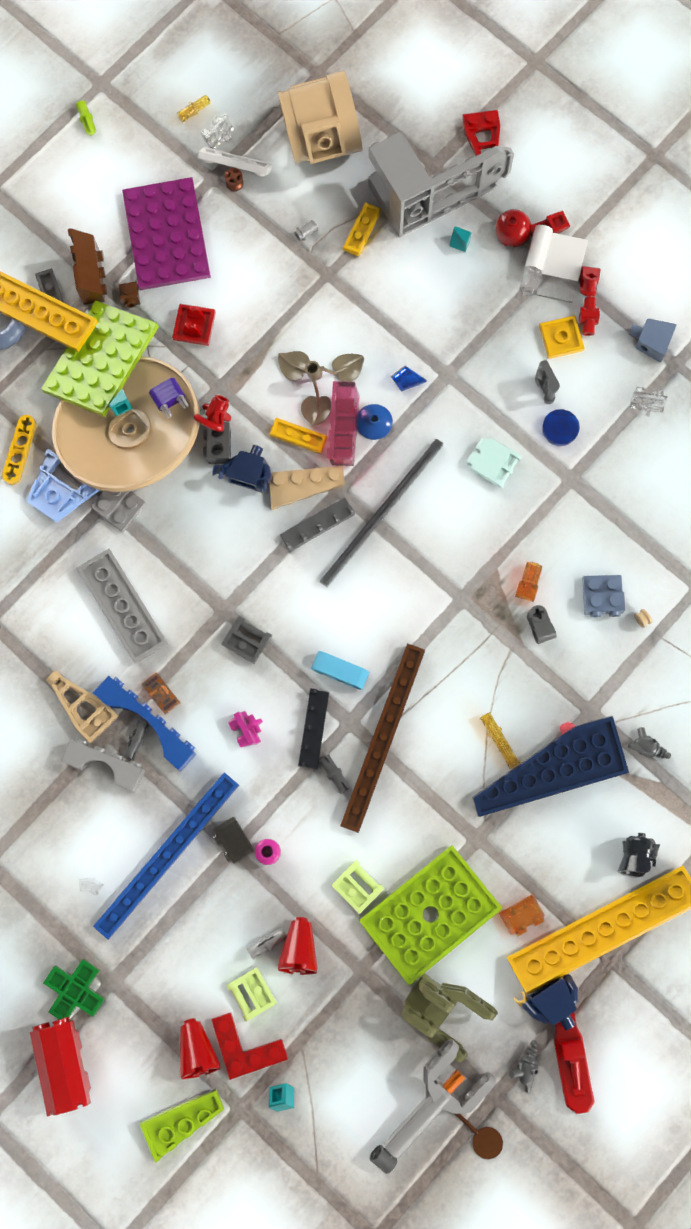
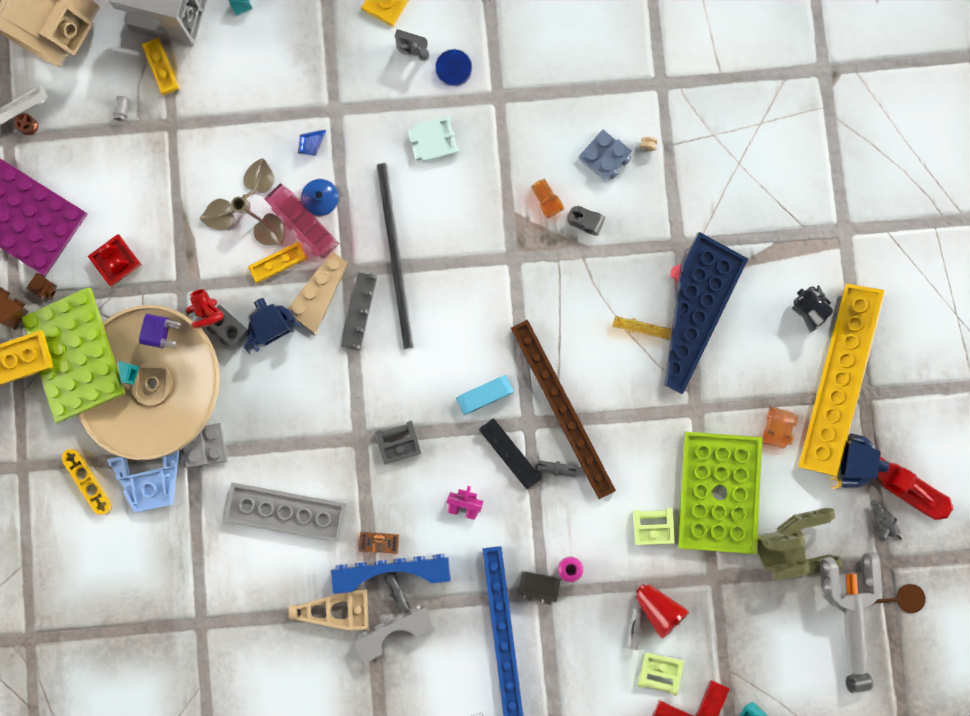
camera: 50 degrees left, 5 degrees up
(648, 746) = (742, 227): dark grey piece -> none

